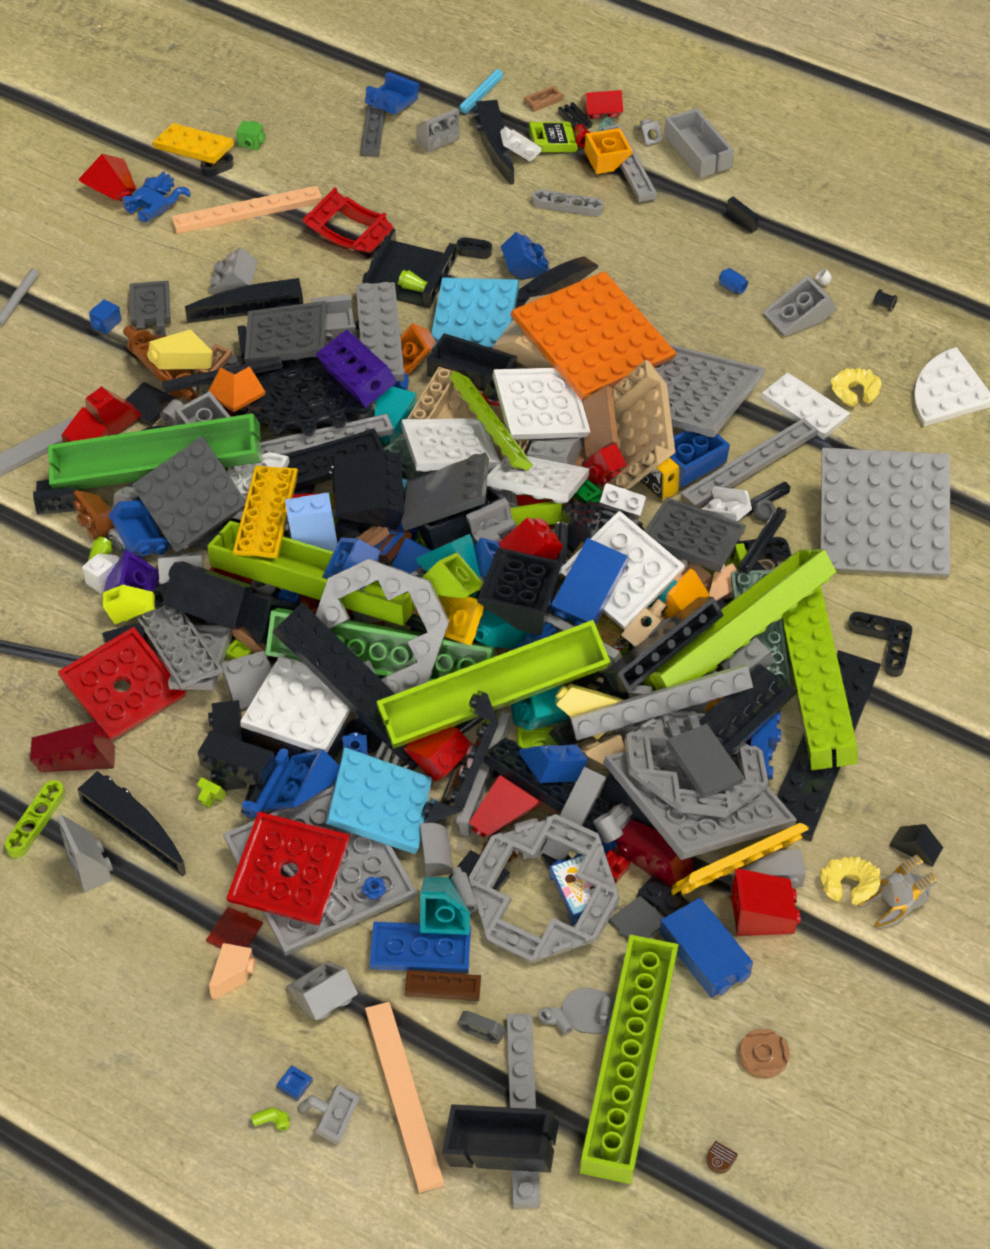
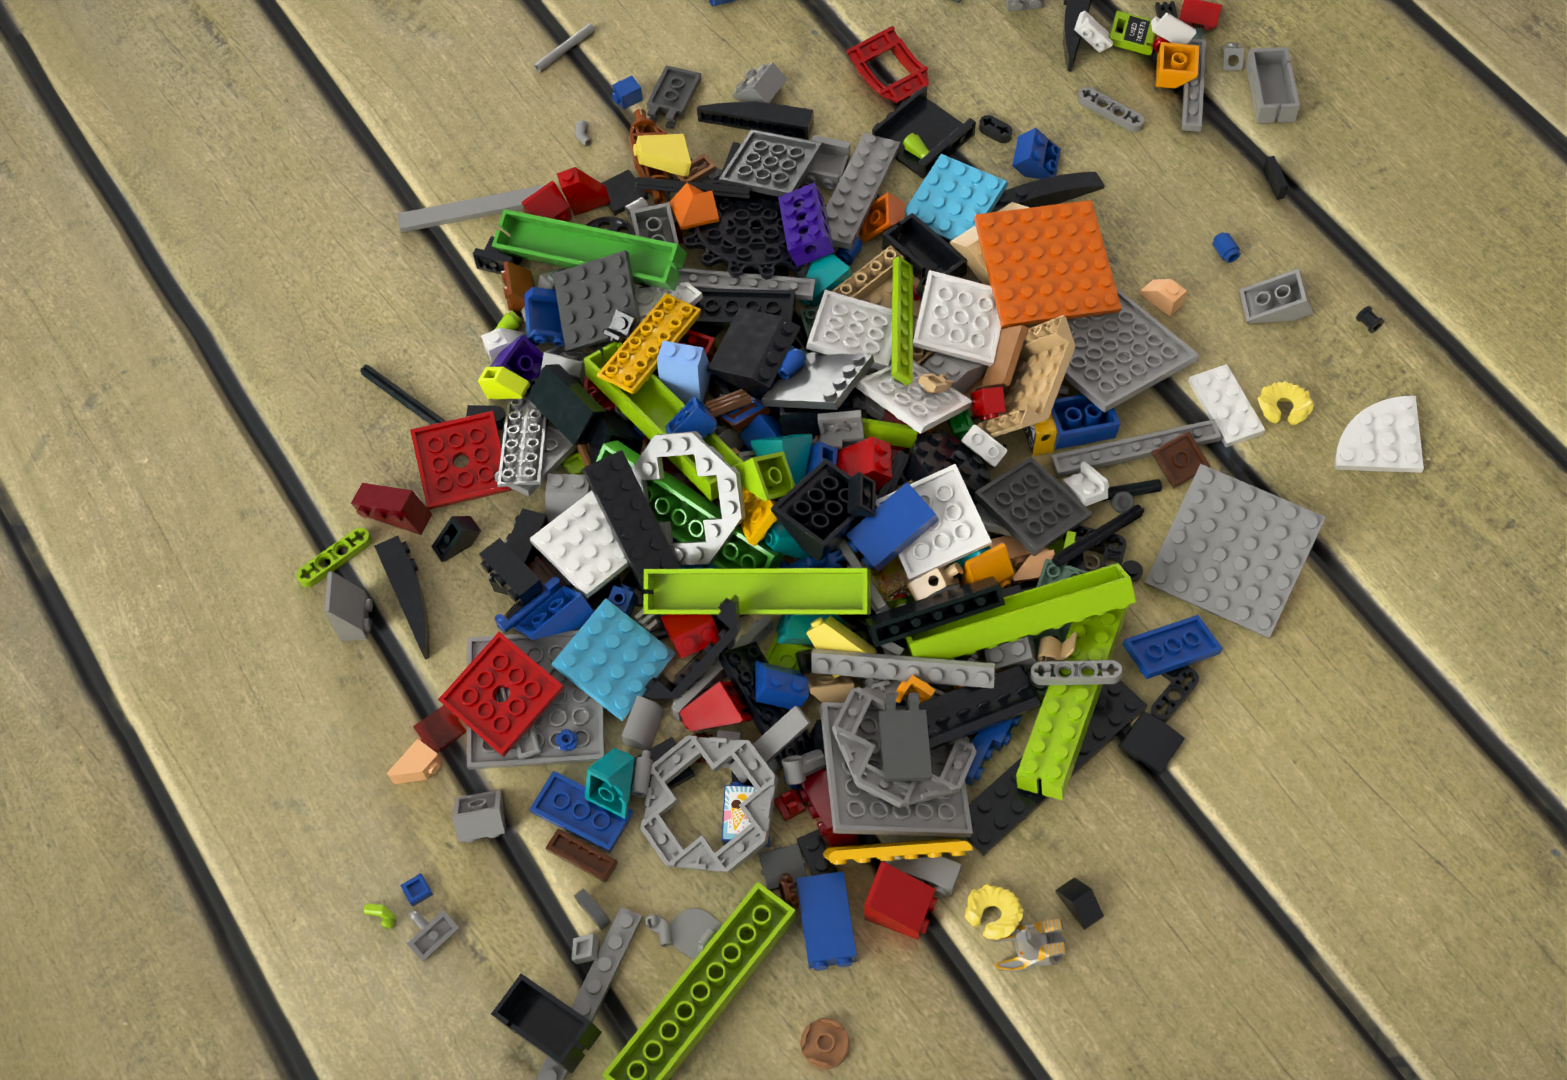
camera: 30 degrees right, 10 degrees up
(76, 365) = (580, 129): none -> light grey arm
(154, 755) = (456, 537): none -> black slope
(210, 792) = (482, 591): lime tile -> none
(230, 506) = (620, 326): none -> bracket
(246, 209) = (808, 21): light nougat plate -> none
(404, 1098) = (497, 943): light nougat tile -> none
(412, 485) = (792, 363): none -> blue cone
(494, 1064) = (585, 948): none -> light grey plate
(550, 565) = (861, 496): none -> black slope
(551, 461) = (935, 384): none -> tan plate
(590, 120) = (1172, 29): none -> white panel
(656, 930) = (787, 890): none -> reddish brown gear
(681, 709) = (915, 685): none -> light orange bracket
(703, 334) = (1165, 295): none -> light nougat slope
(783, 645) = (1053, 650): none -> tan panel
(794, 459) = (1179, 459): none -> reddish brown tile
(812, 647) = (1076, 676): none -> light grey beam
(823, 277) = (1320, 273): white hinge -> none
(876, 607) = (1172, 646): none -> blue plate
(902, 692) = (1151, 742): none -> black slope

